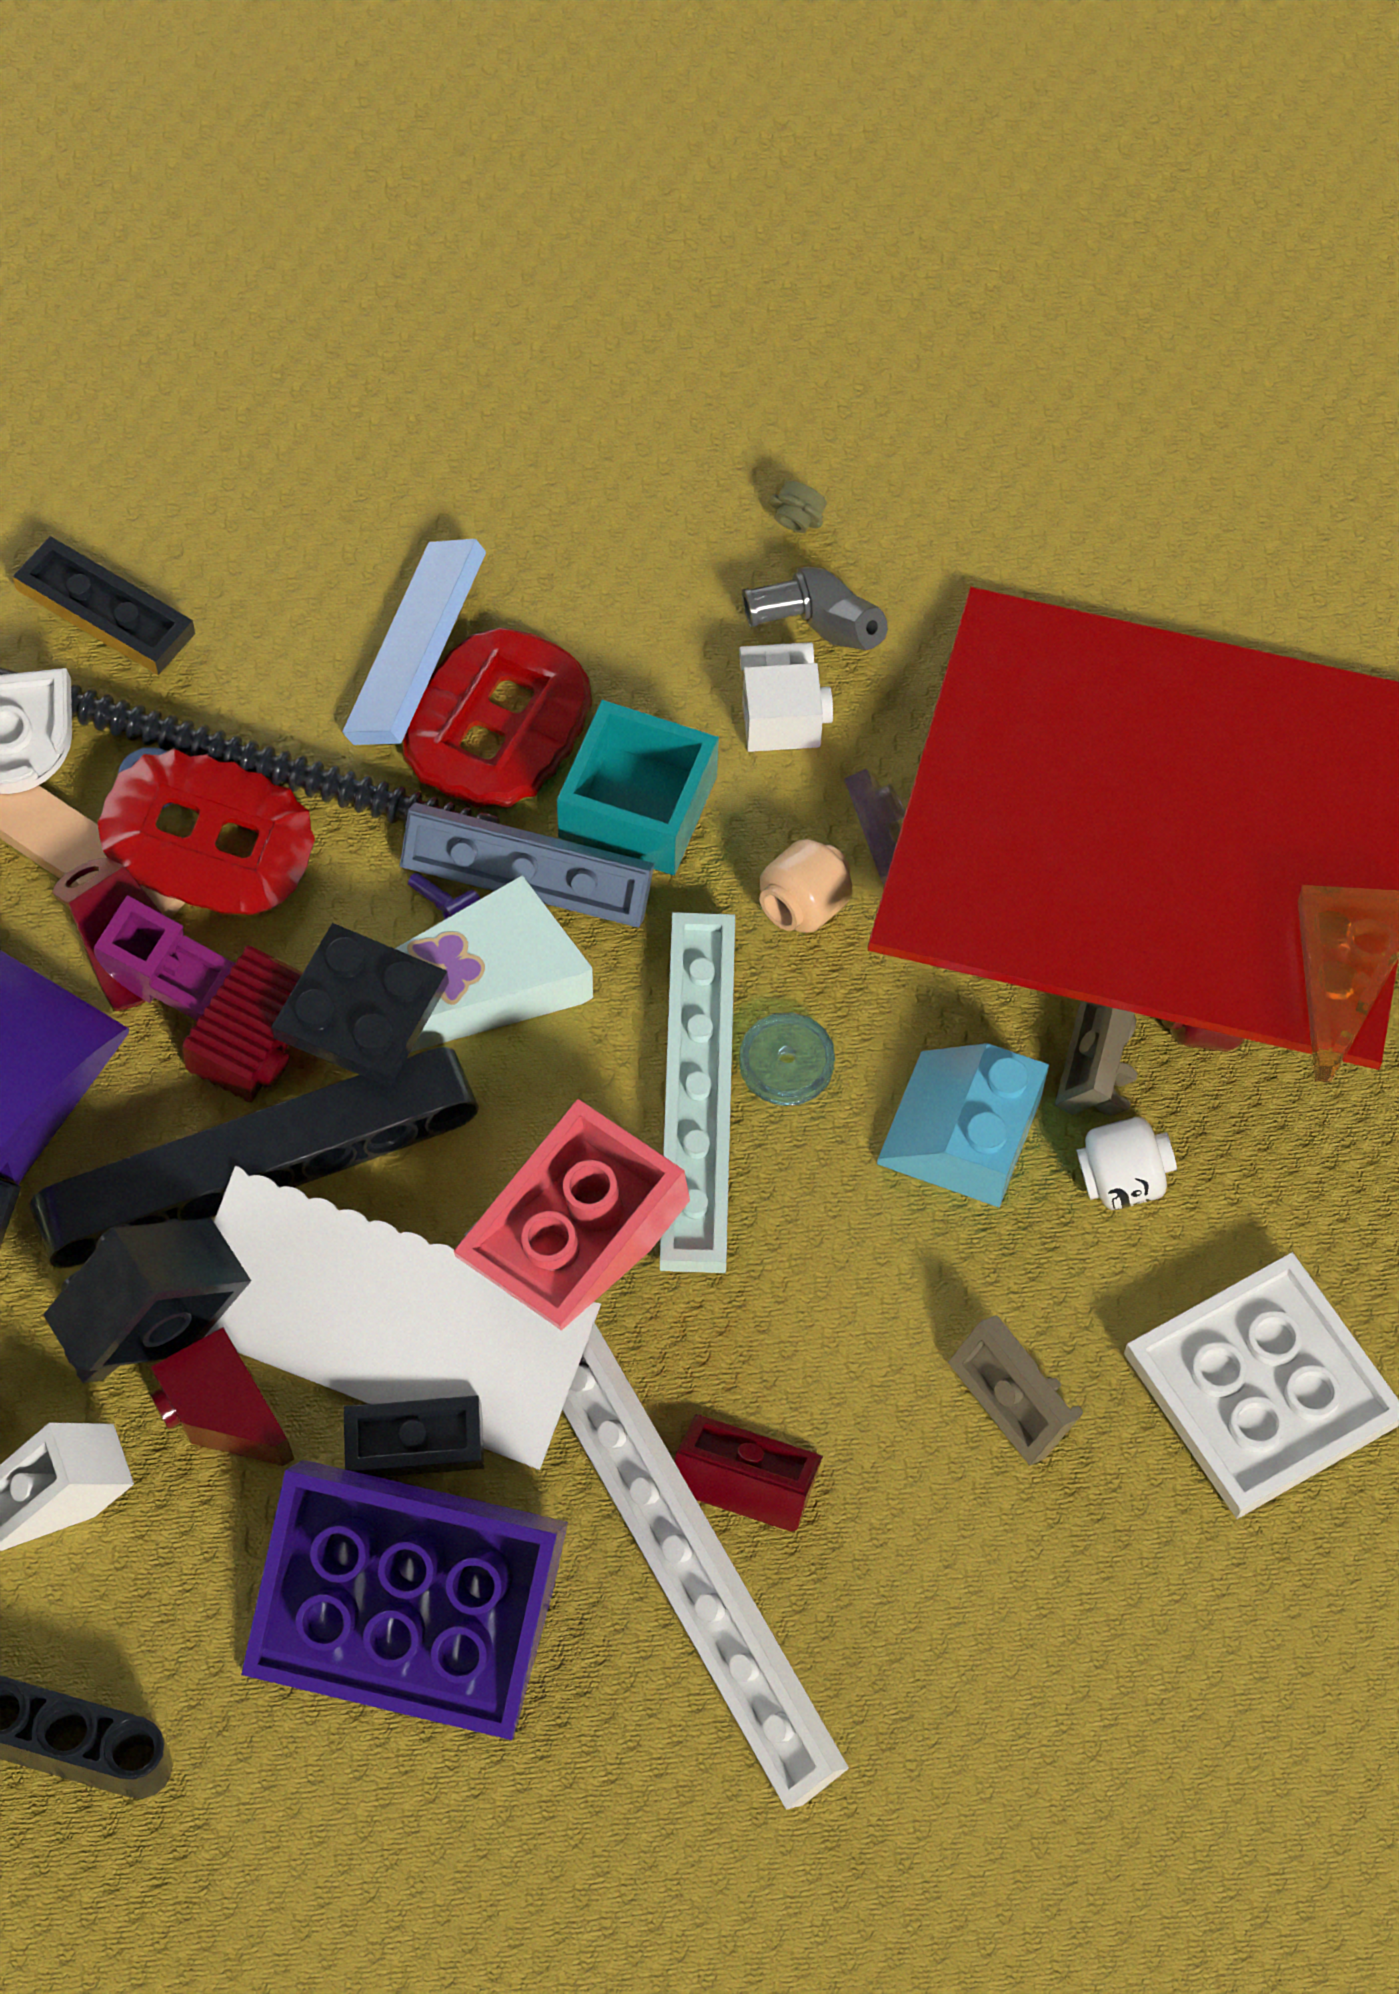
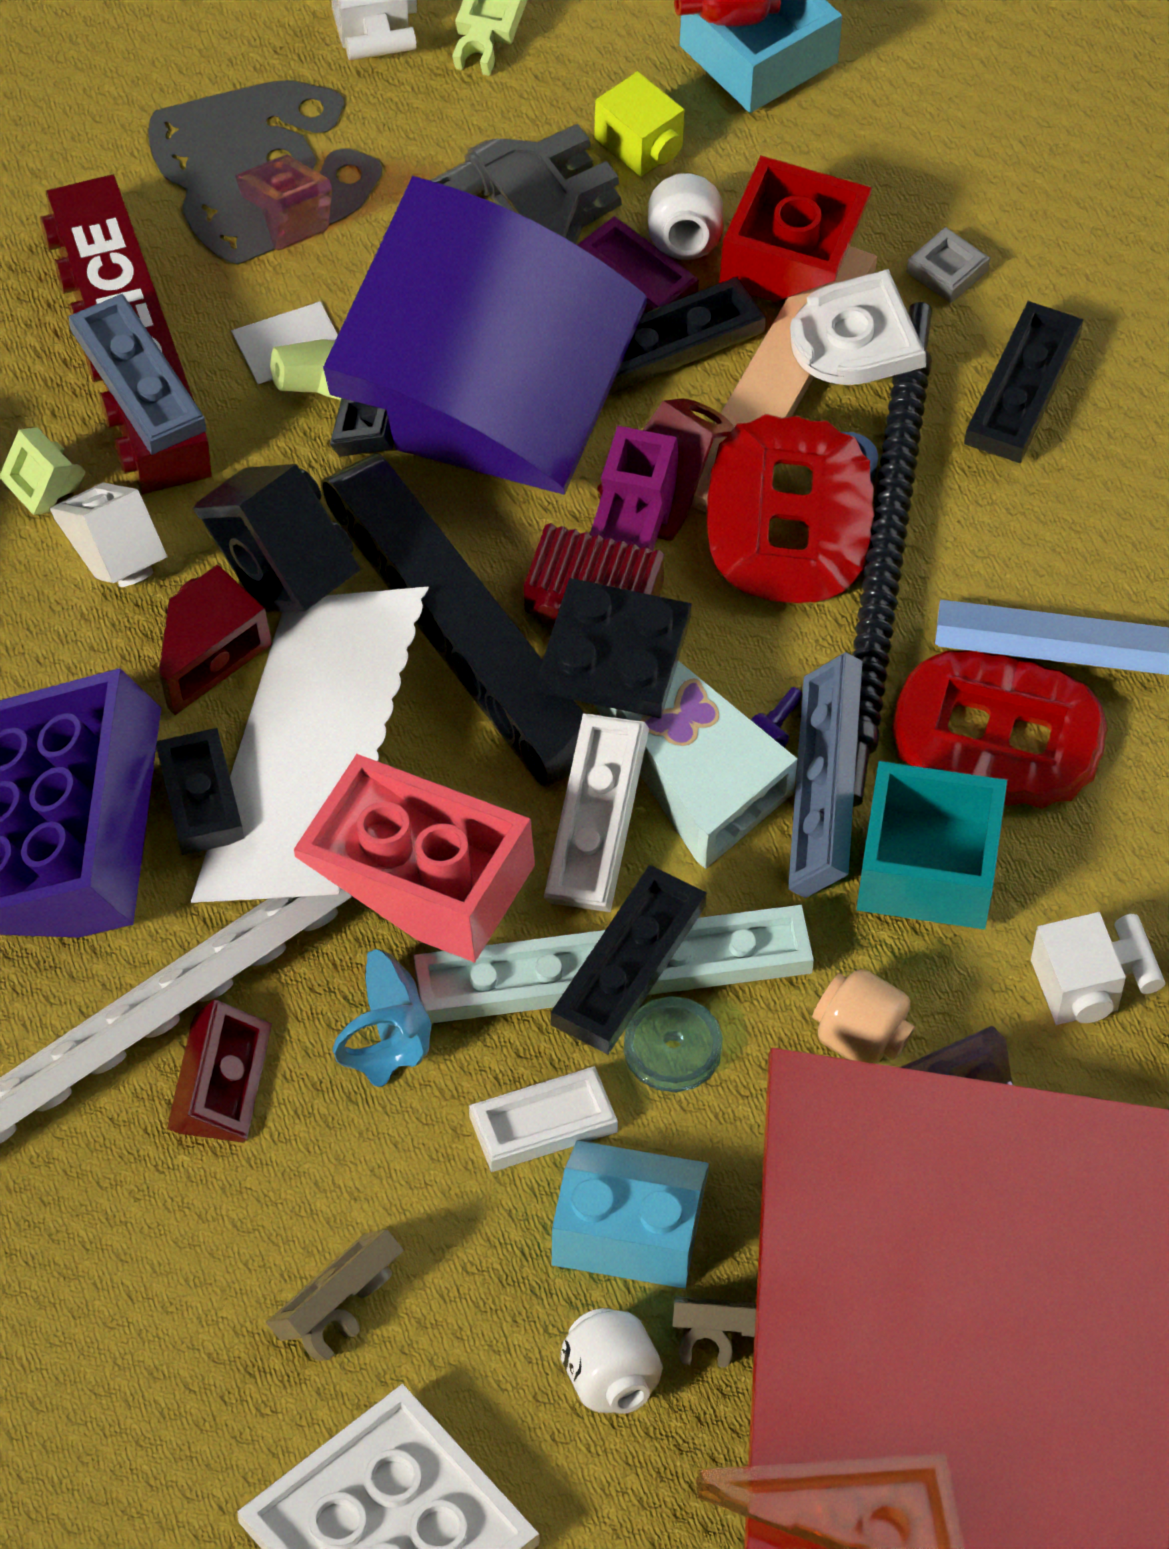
camera: 80 degrees right, 5 degrees down
(528, 1060) = (596, 812): none -> white tile
(718, 1061) = (628, 959): none -> black plate
(722, 1290) = (399, 1020): none -> dark azure piece
(849, 1184) = (543, 1118): none -> white tile

